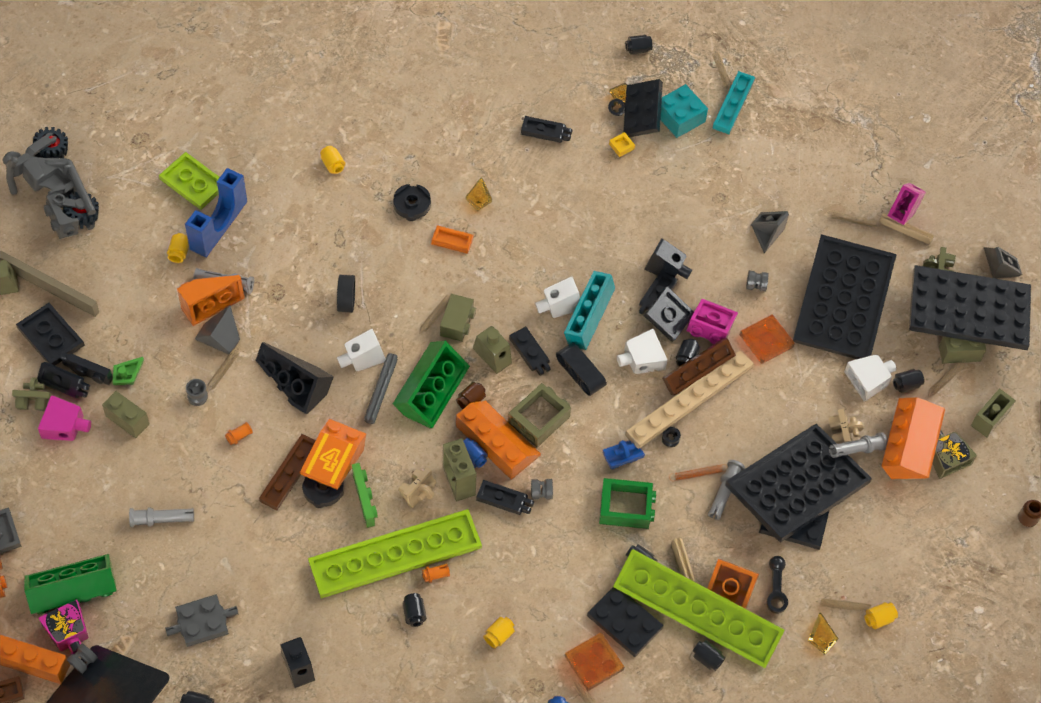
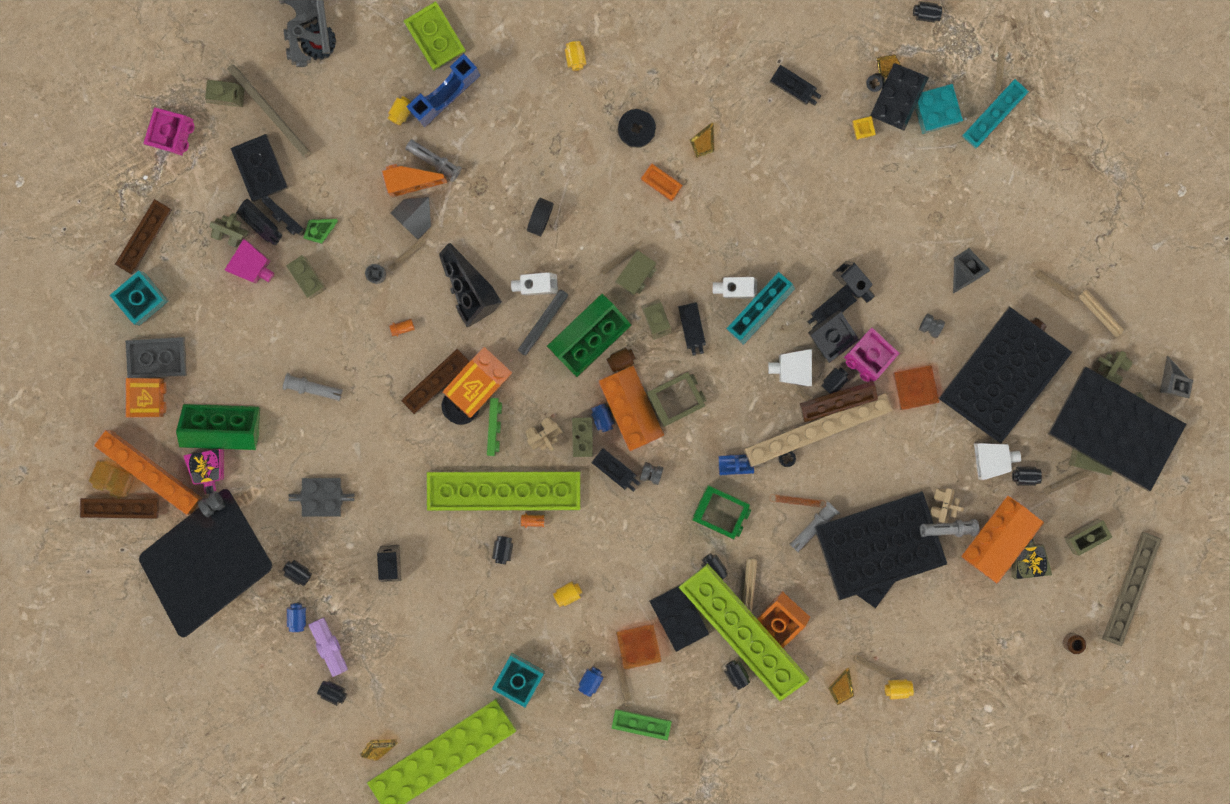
camera: 20 degrees right, 30 degrees up
(581, 369) = (731, 364): black beam -> none
(777, 565) = (830, 612): black piece -> none
(907, 200) = (1119, 289): dark pink torso -> none

